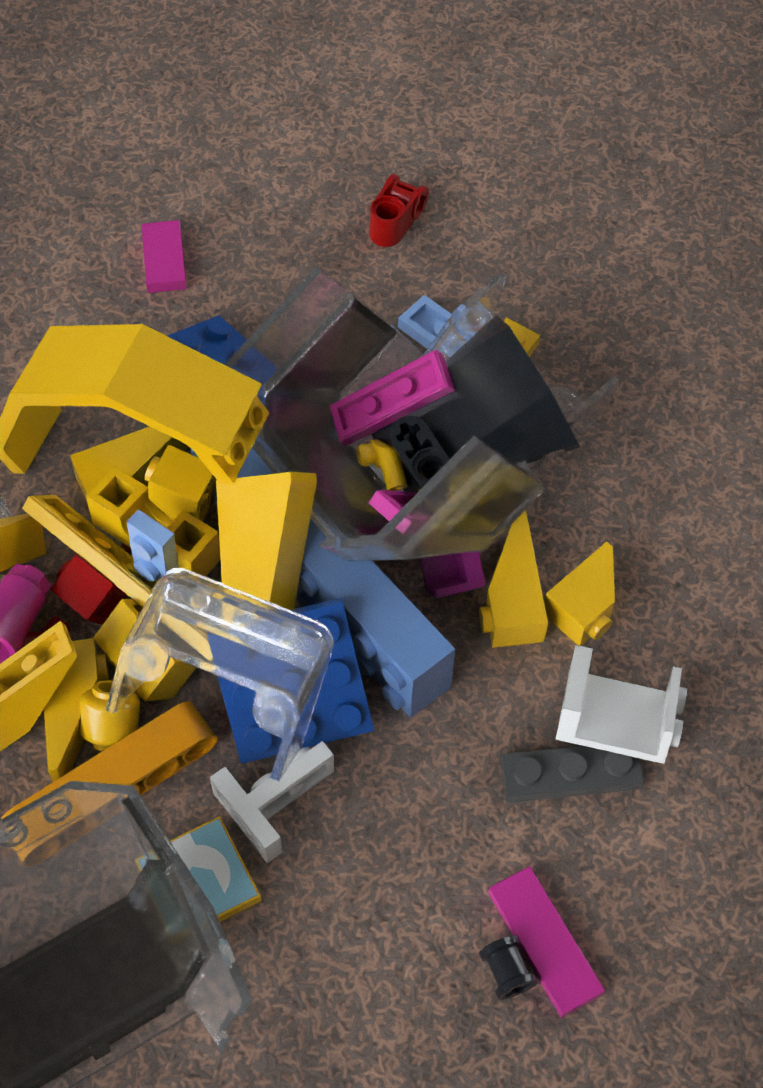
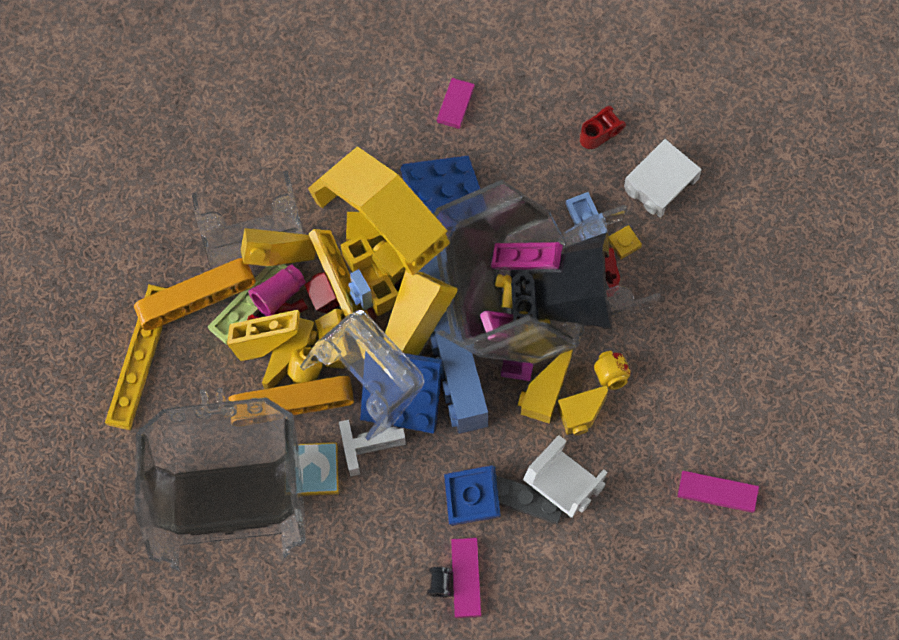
camera: 30 degrees right, 10 degrees up
(486, 801) = (472, 495): none -> blue tile
(519, 238) = (661, 177): none -> white panel
(598, 519) = (612, 370): none -> yellow head

